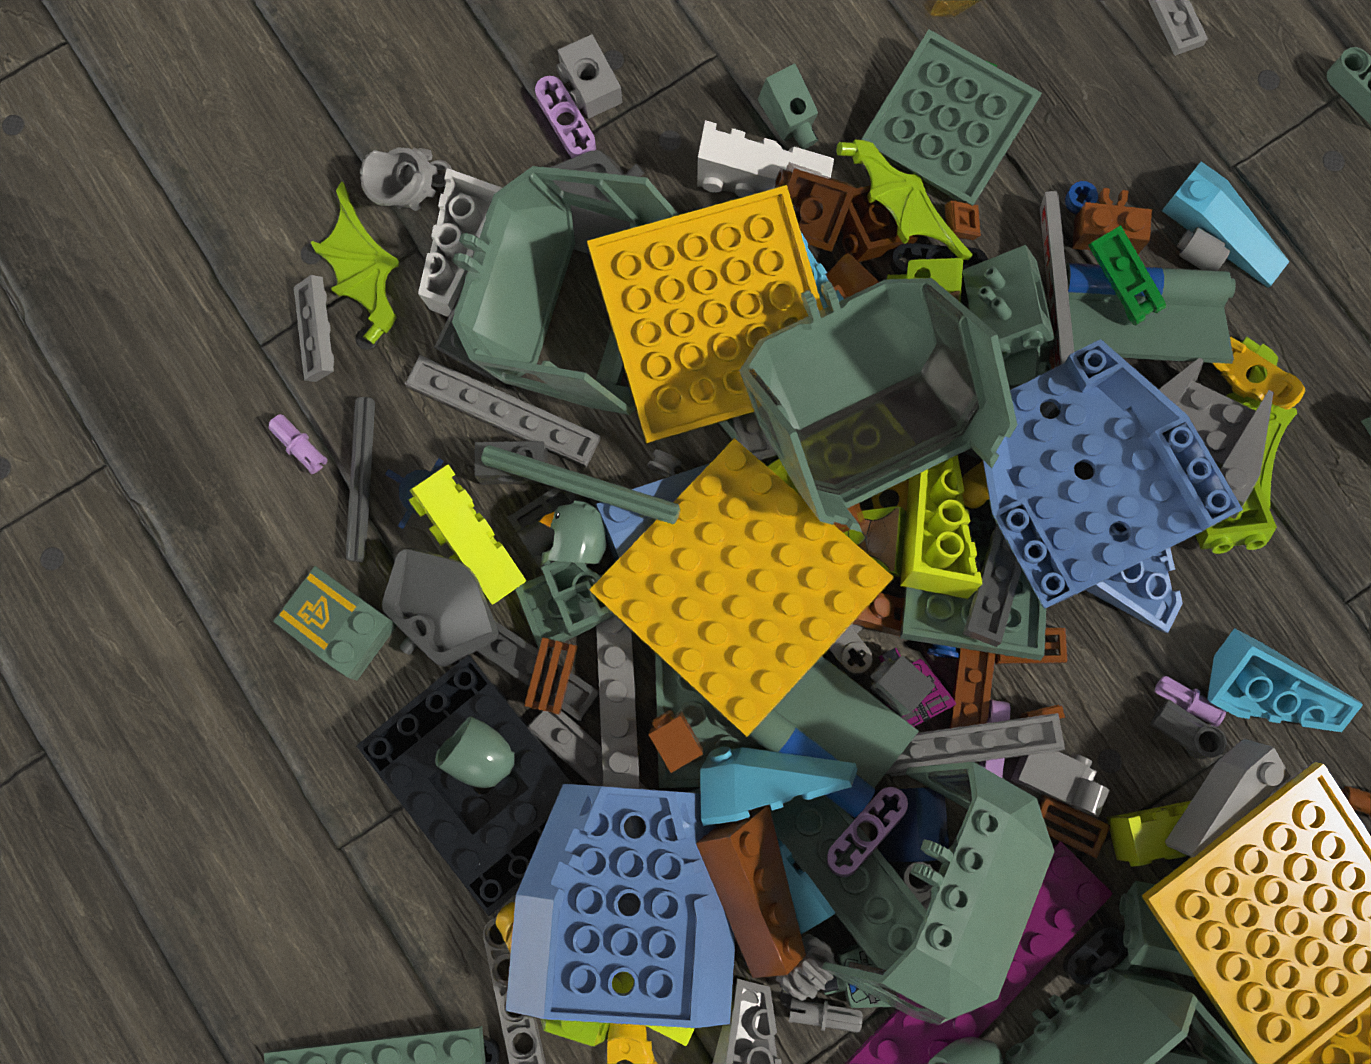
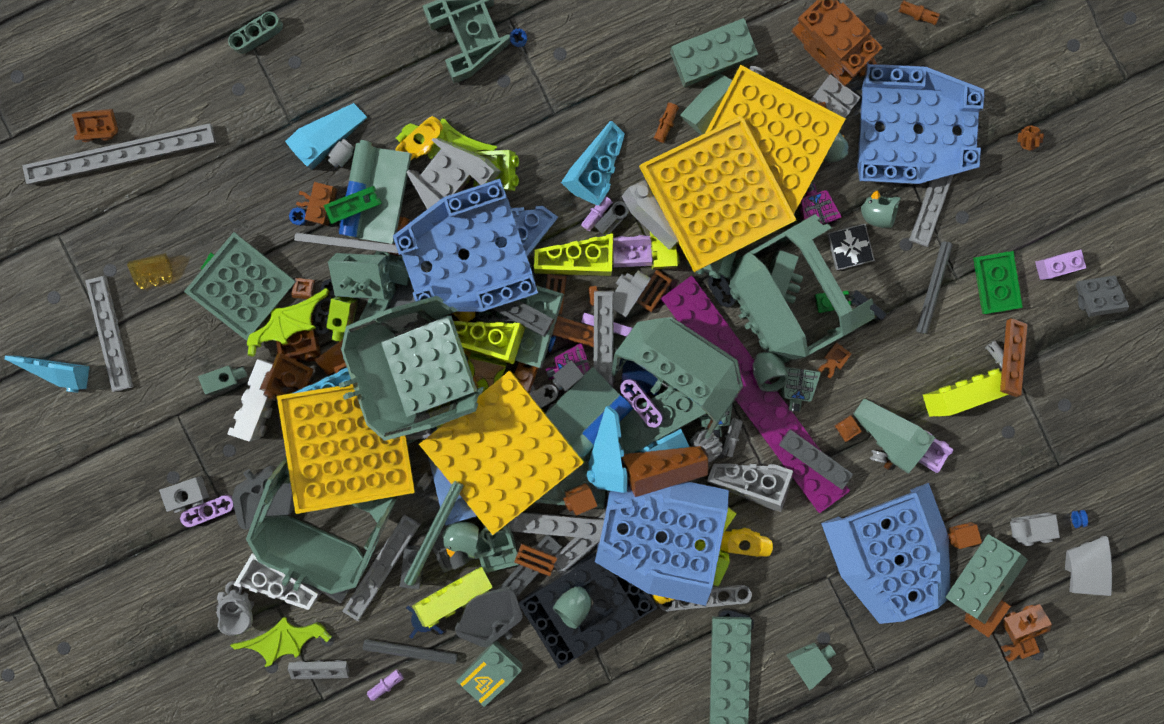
camera: 75 degrees left, 10 degrees up
(881, 434) = (429, 366): none -> sand green plate
(1105, 674) = (577, 257): none -> neon yellow wedge
(1137, 775) = (632, 251): none -> lavender bracket

